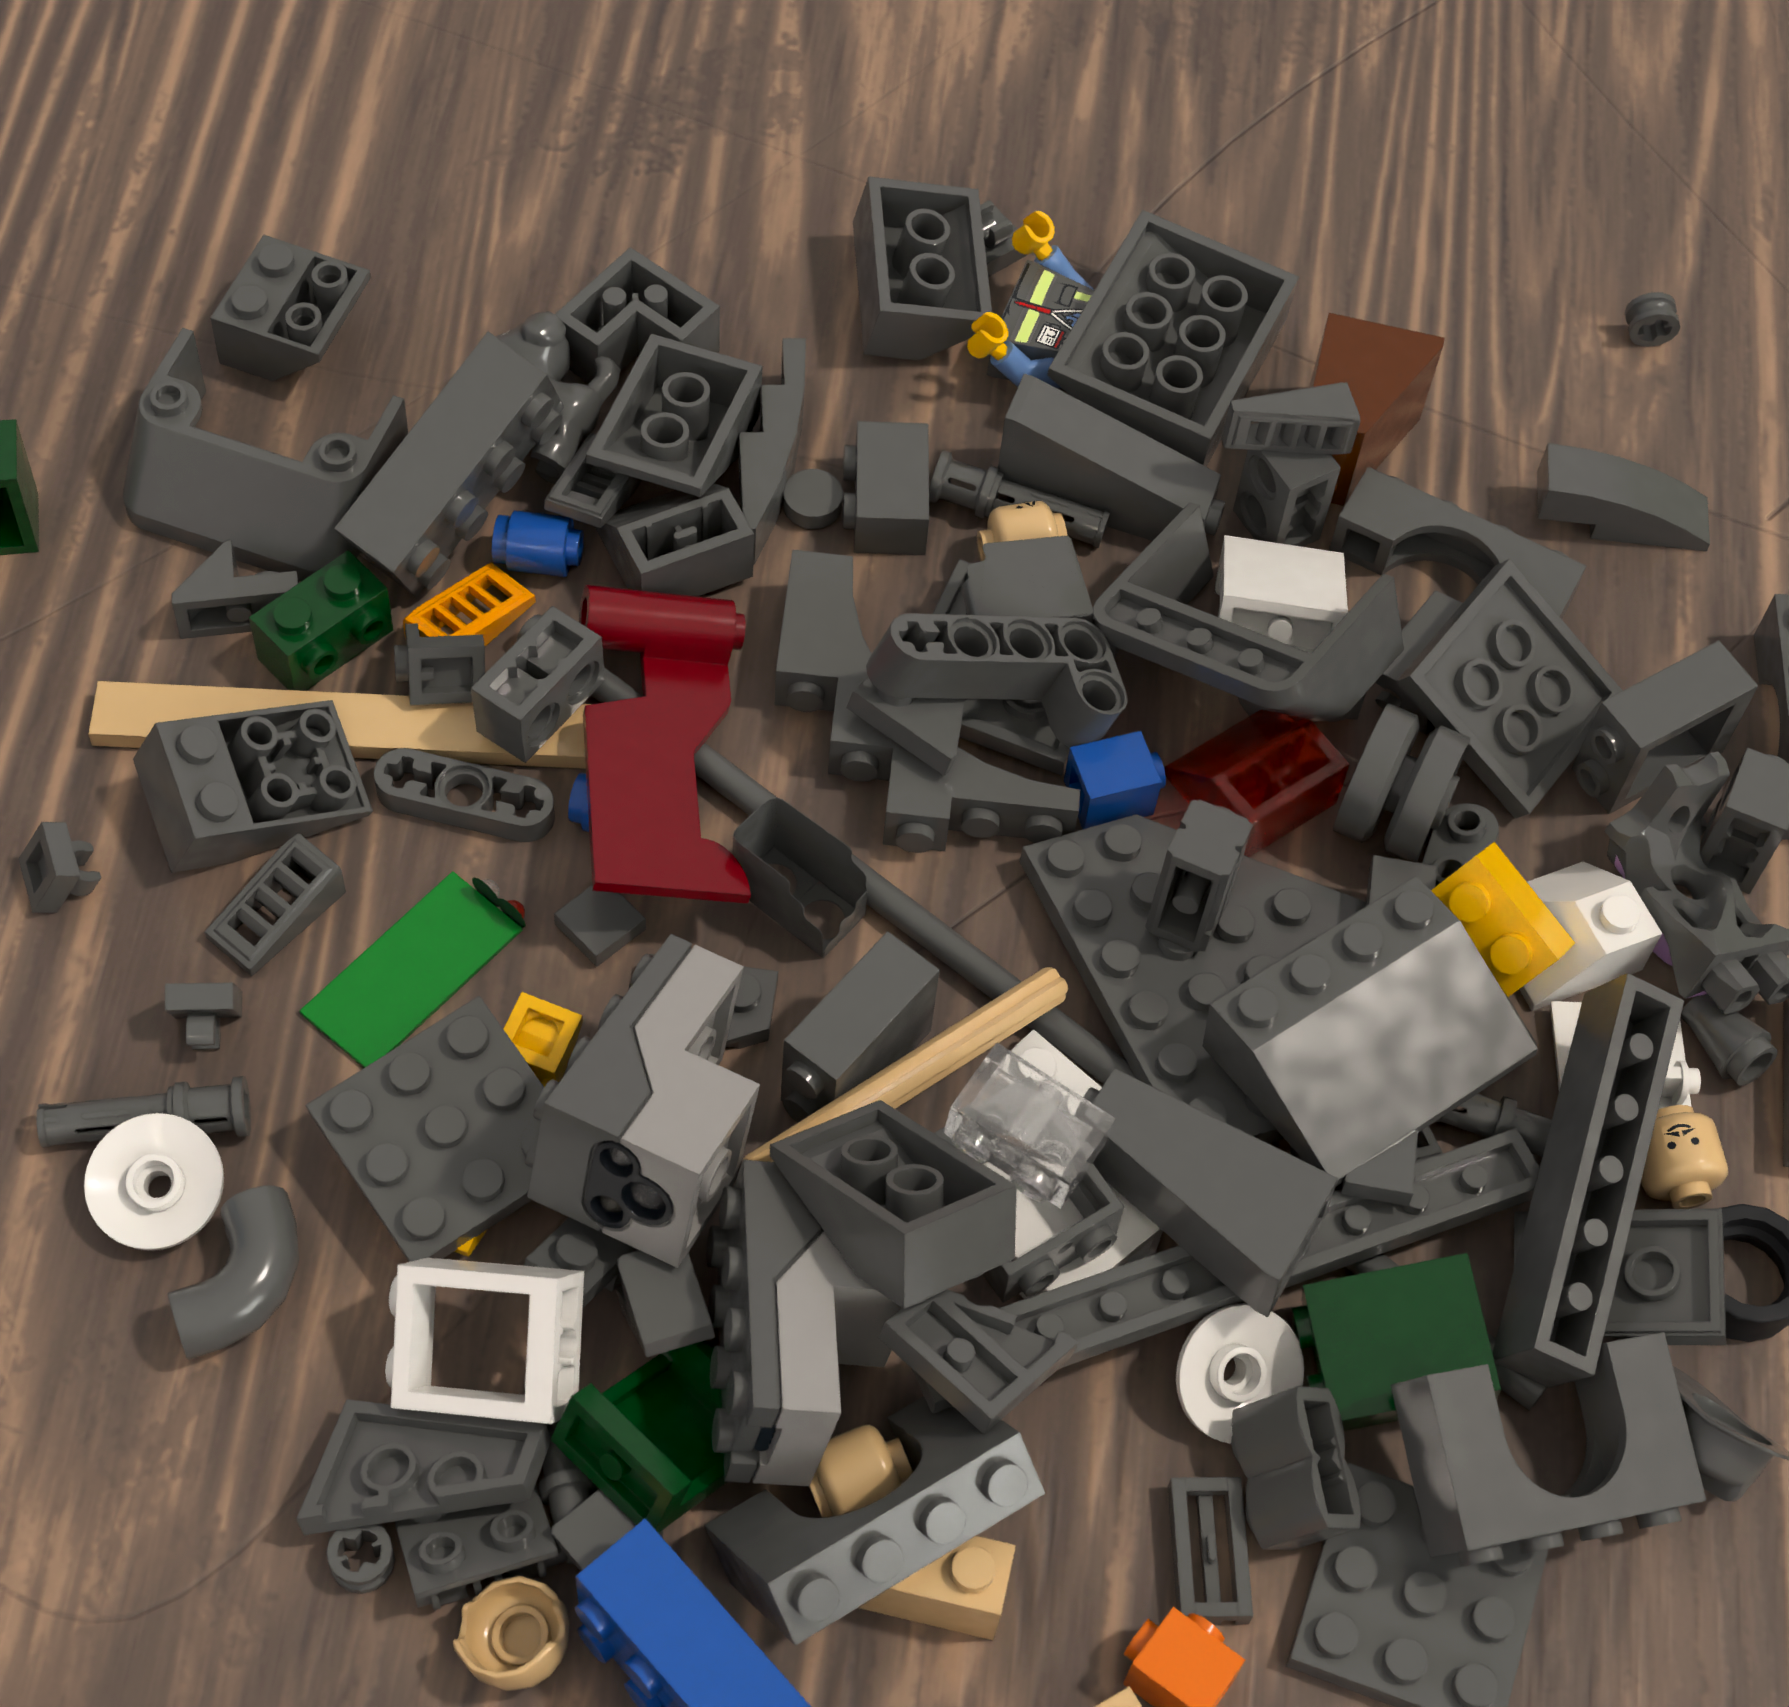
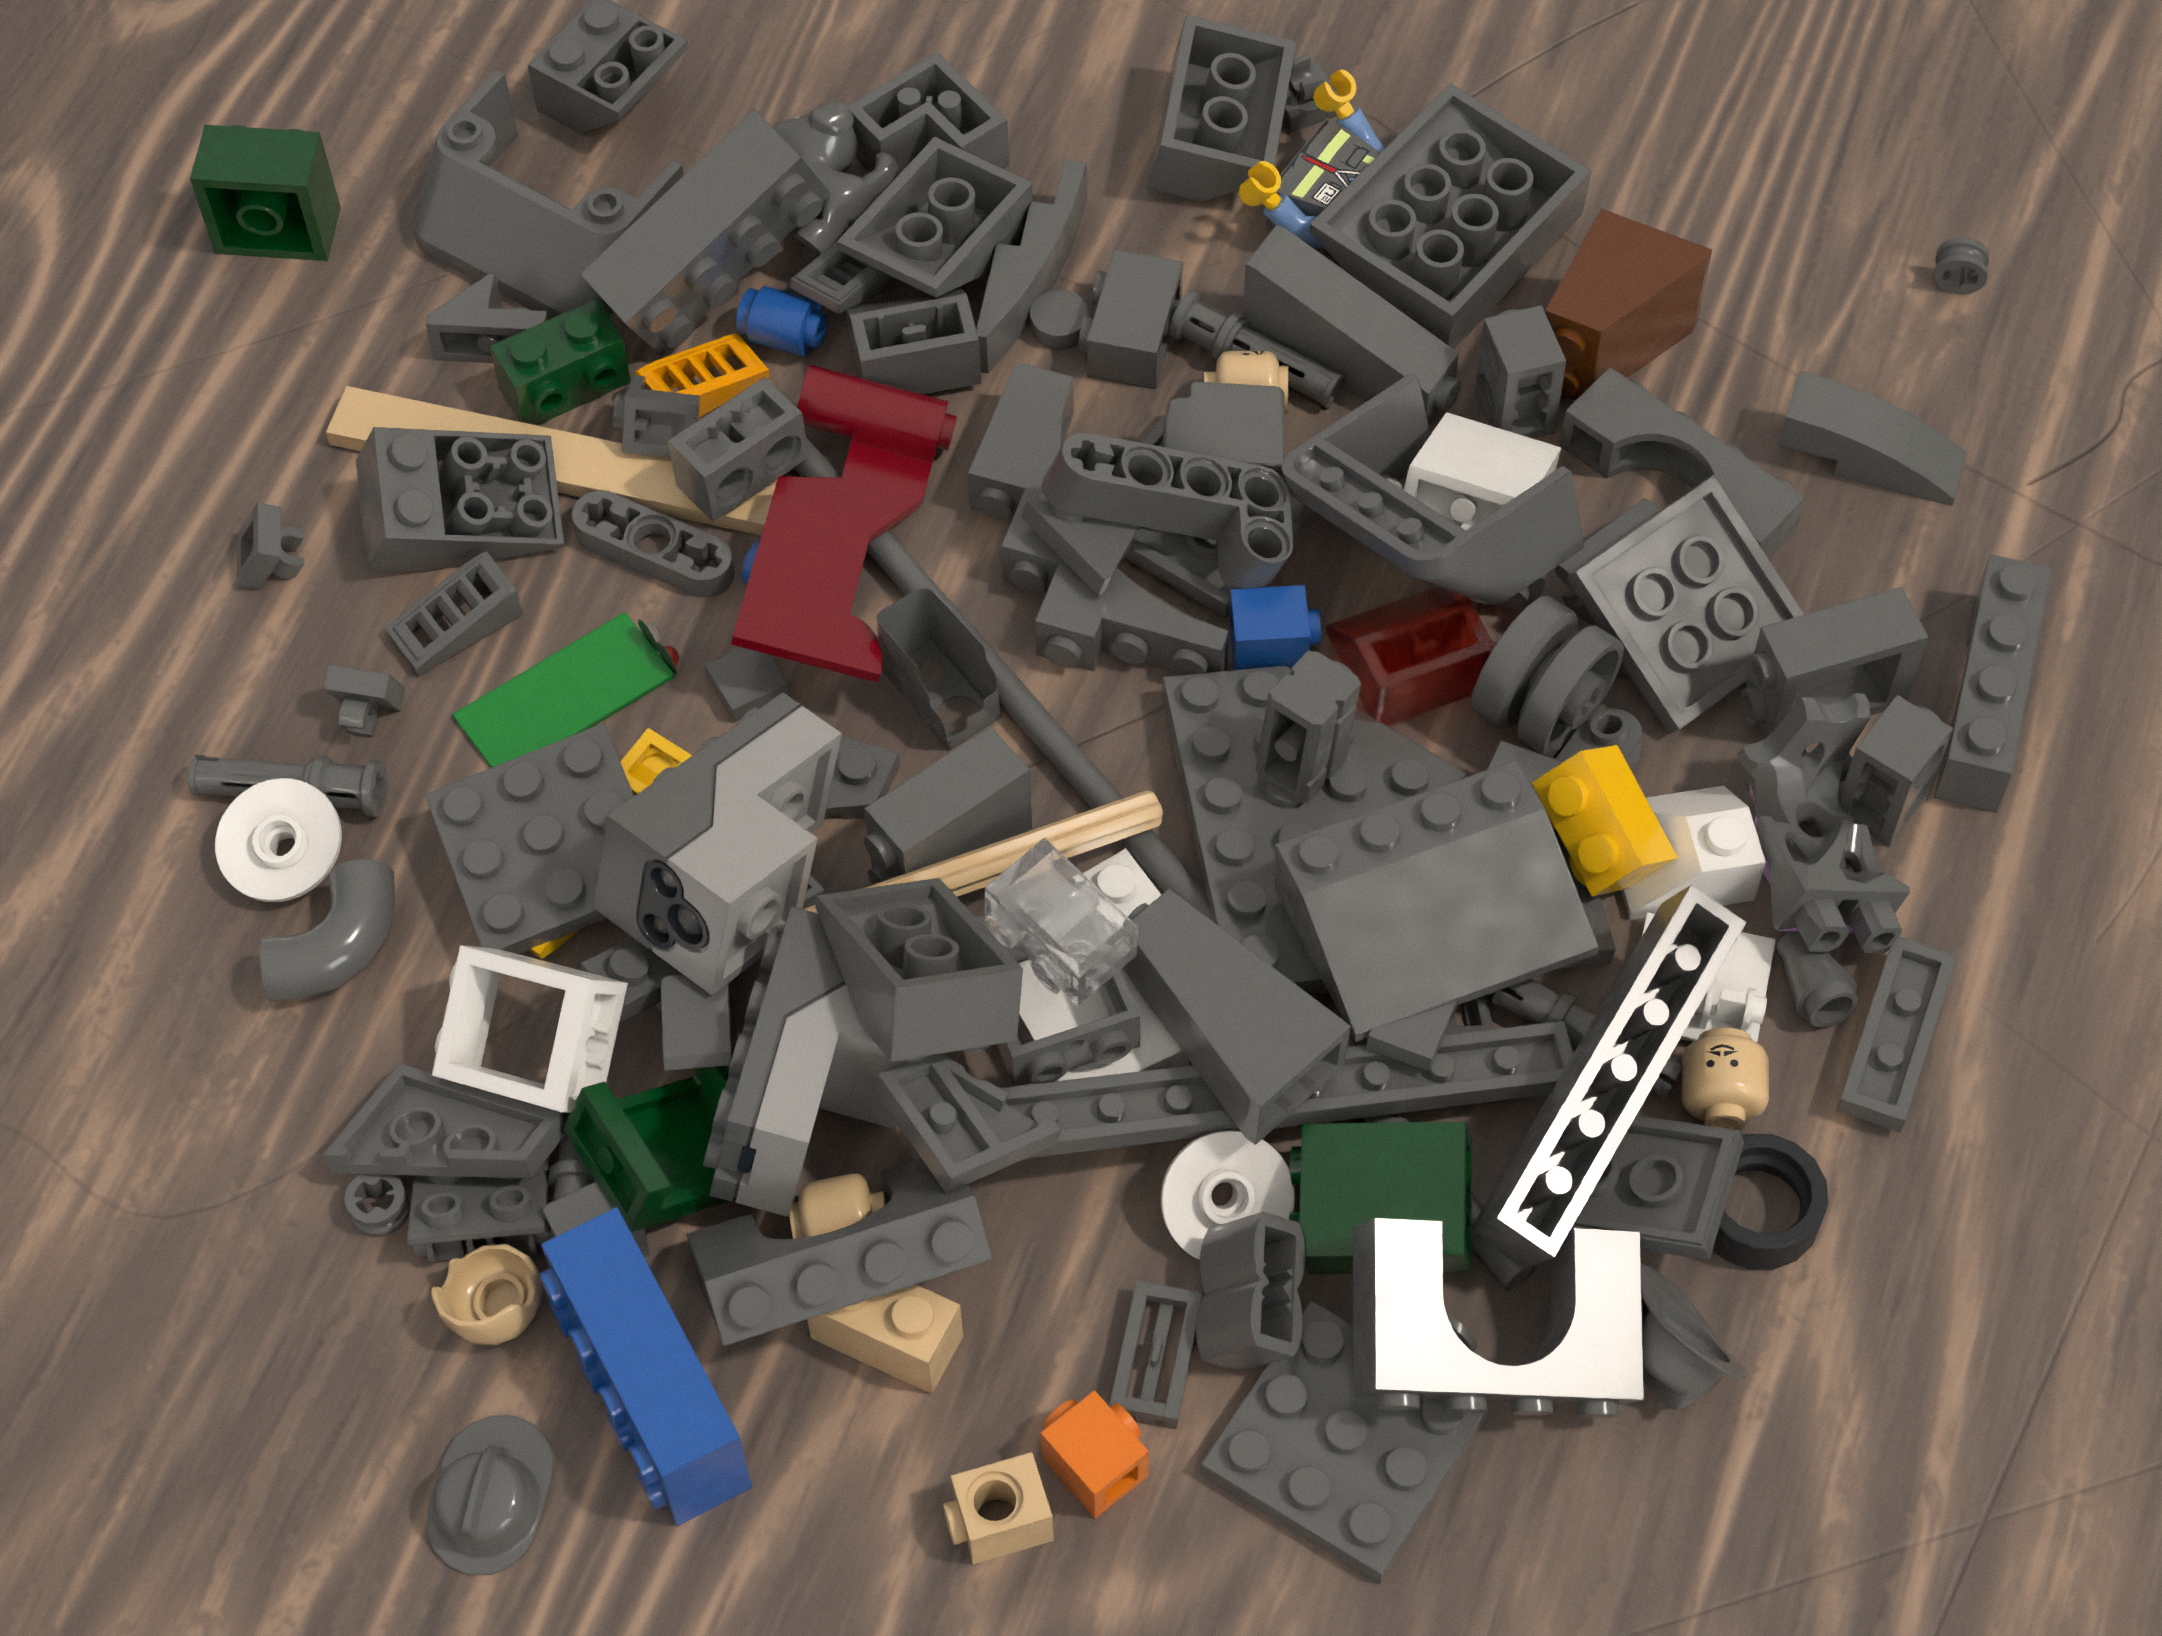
camera: 20 degrees right, 0 degrees up
(1294, 421) = (1524, 307): dark grey slope -> none

